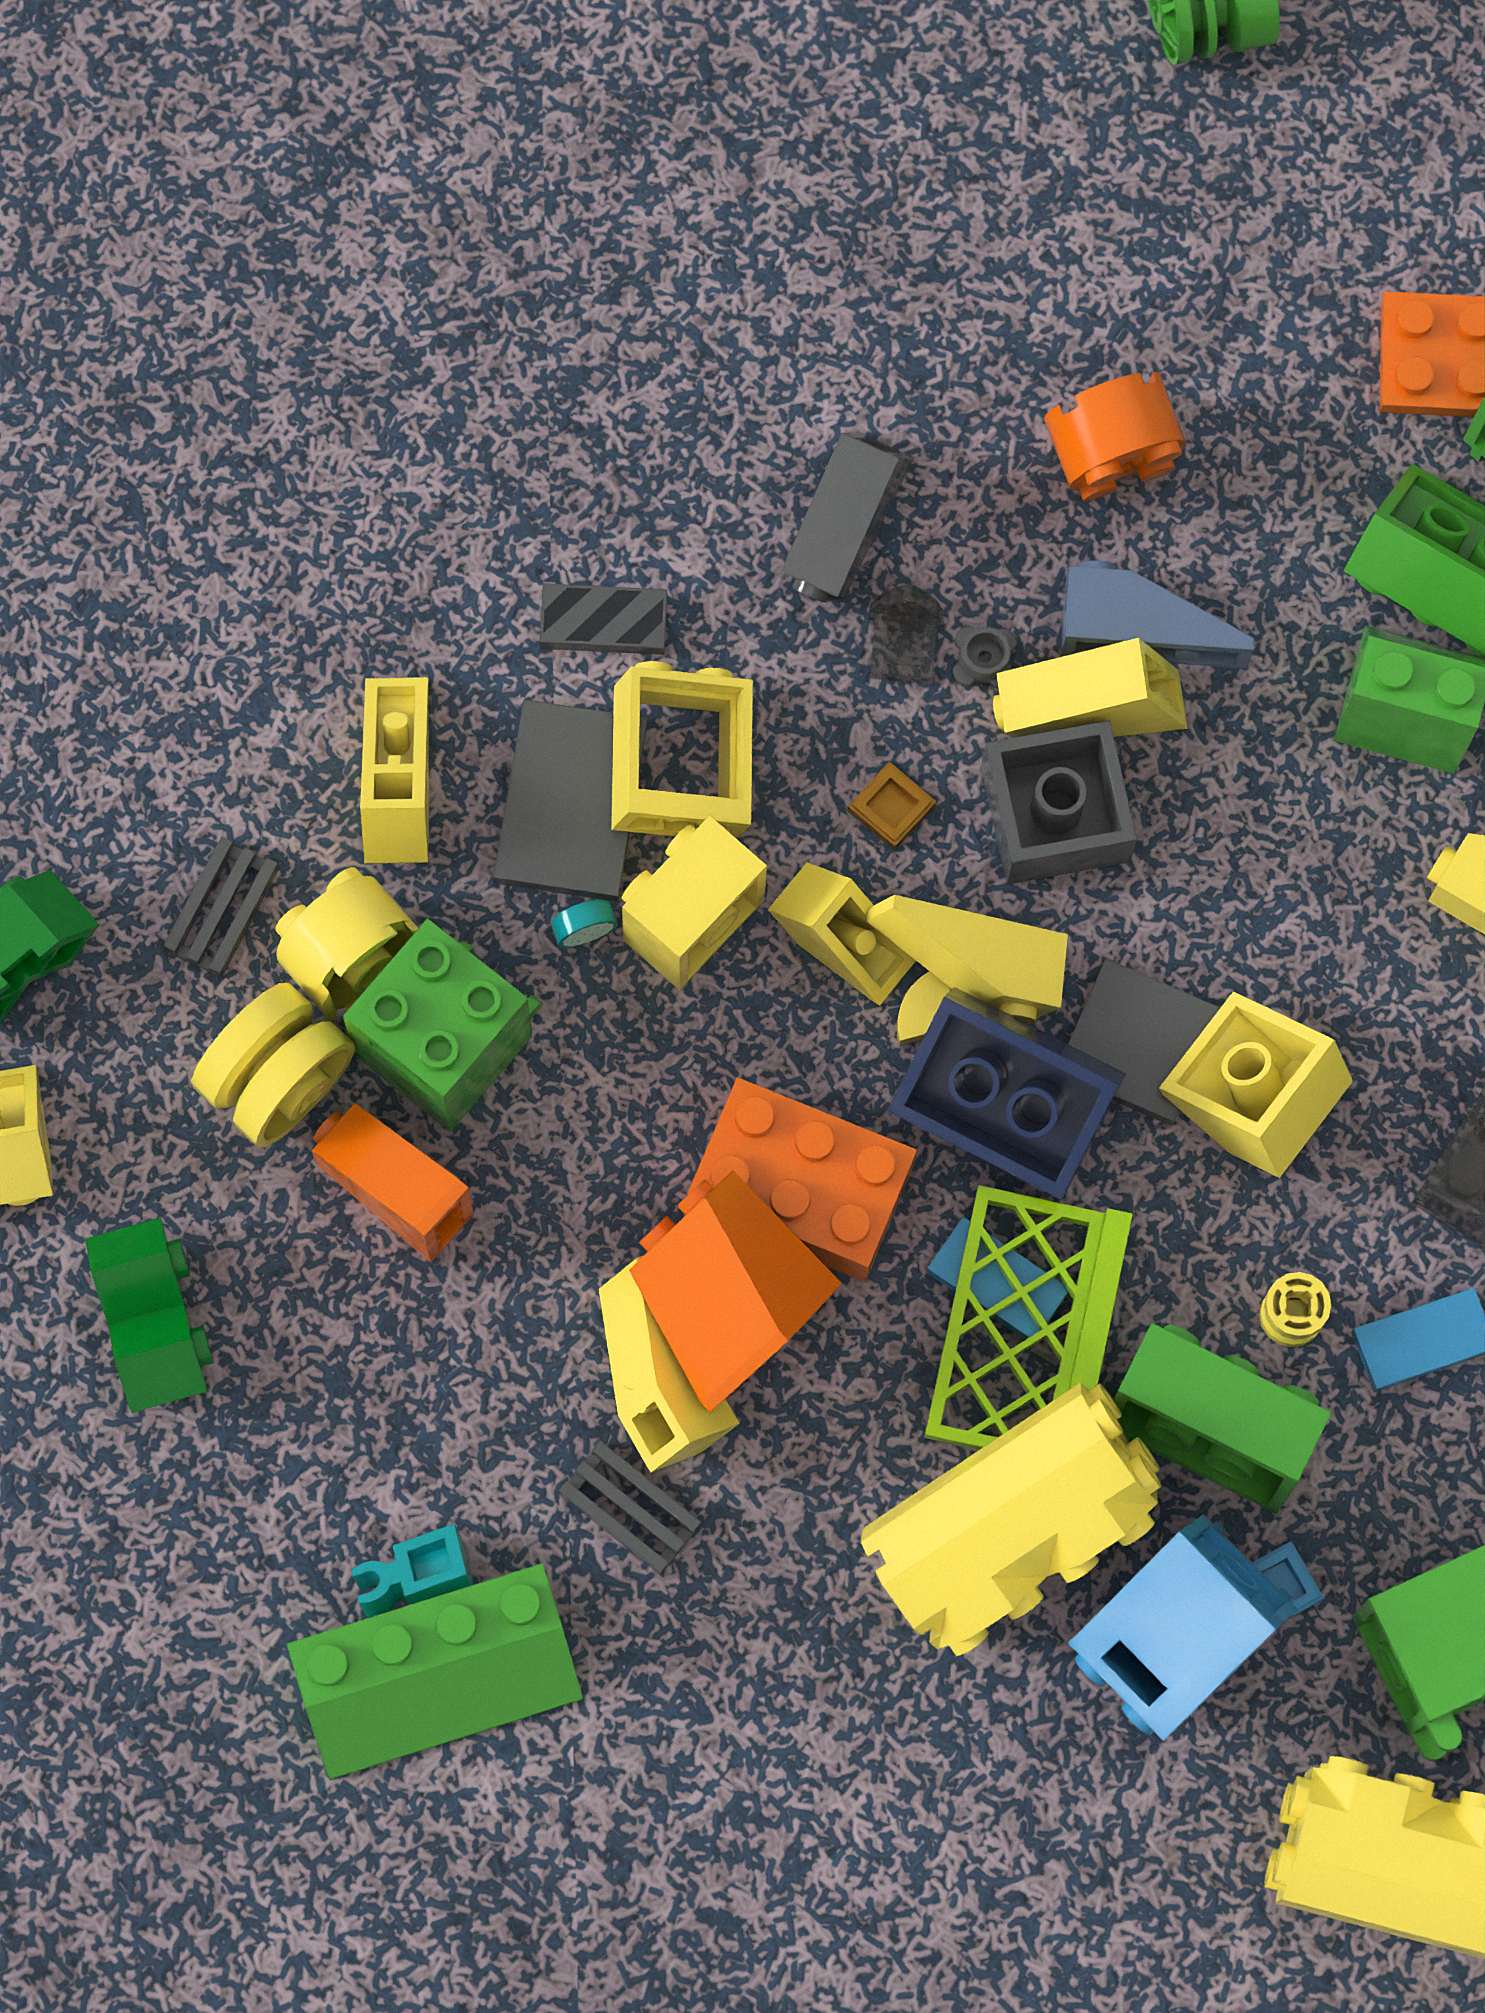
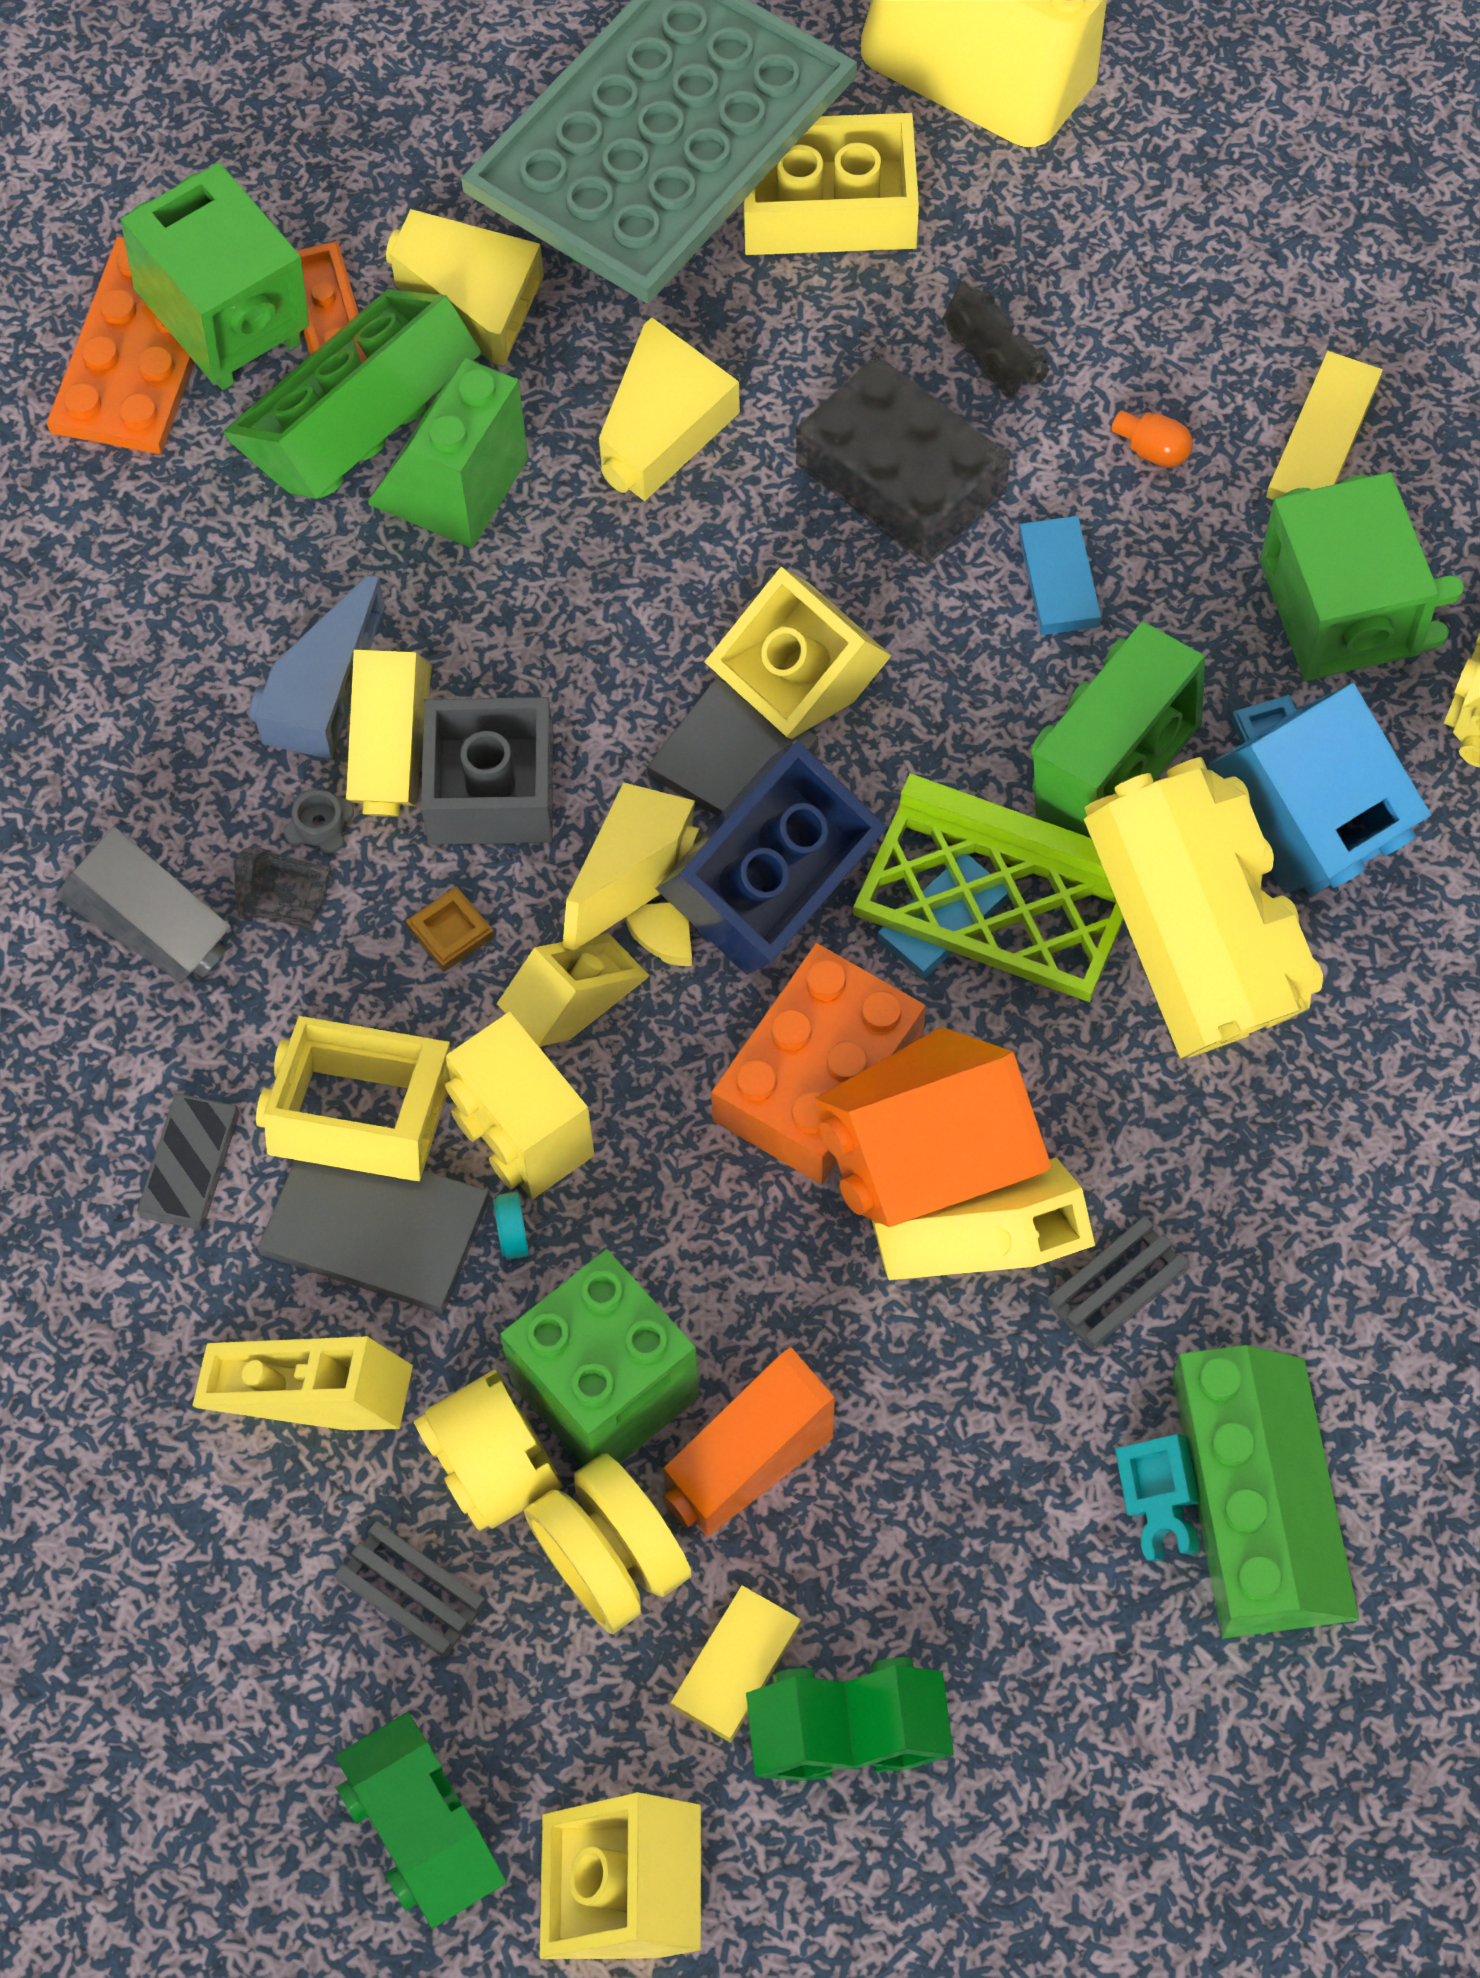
camera: 75 degrees left, 10 degrees down
(197, 1208) = (734, 1662): none -> light yellow tile
(1116, 433) = (133, 655): orange brick -> none
(1286, 1319) = (1015, 680): light yellow wheel -> none

